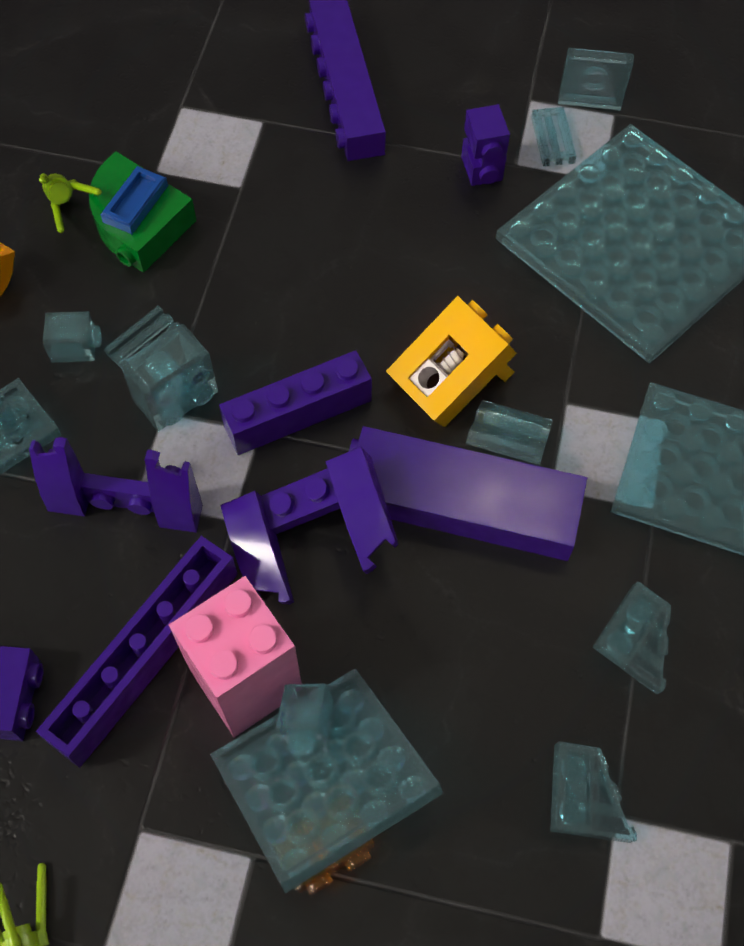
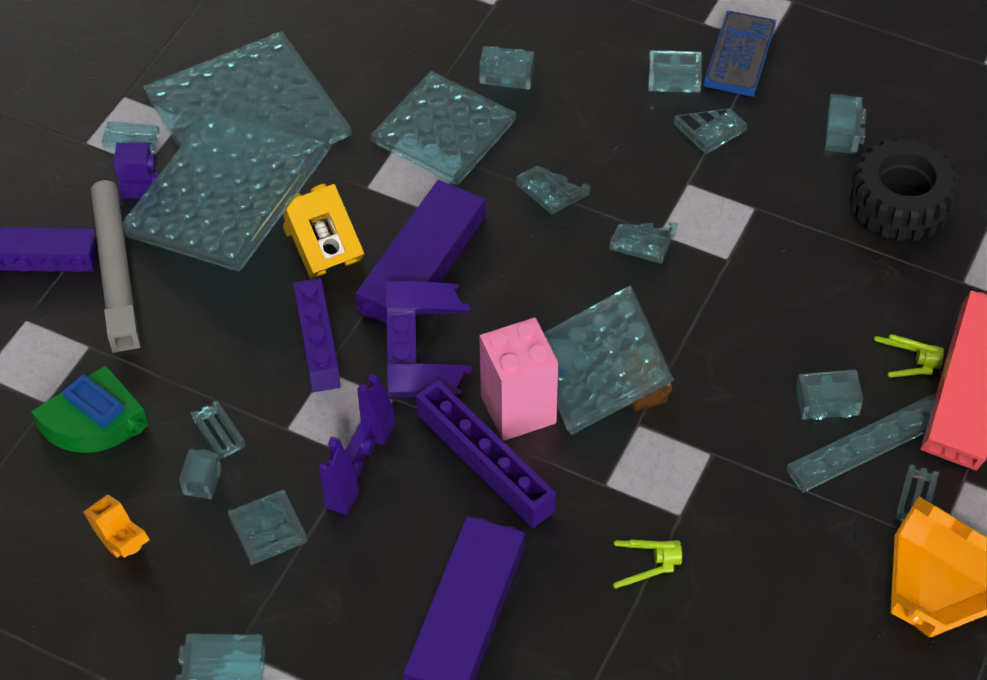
camera: 75 degrees left, 10 degrees down
(59, 191) = (46, 463): lime plant -> none
(170, 377) = (273, 402): clear light blue brick -> none
(269, 201) = (114, 268): none -> light grey brick
(476, 238) = (225, 189): none -> clear light blue plate
(509, 432) = (385, 216): clear light blue slope -> none
(595, 78) = (100, 90): clear light blue tile -> none

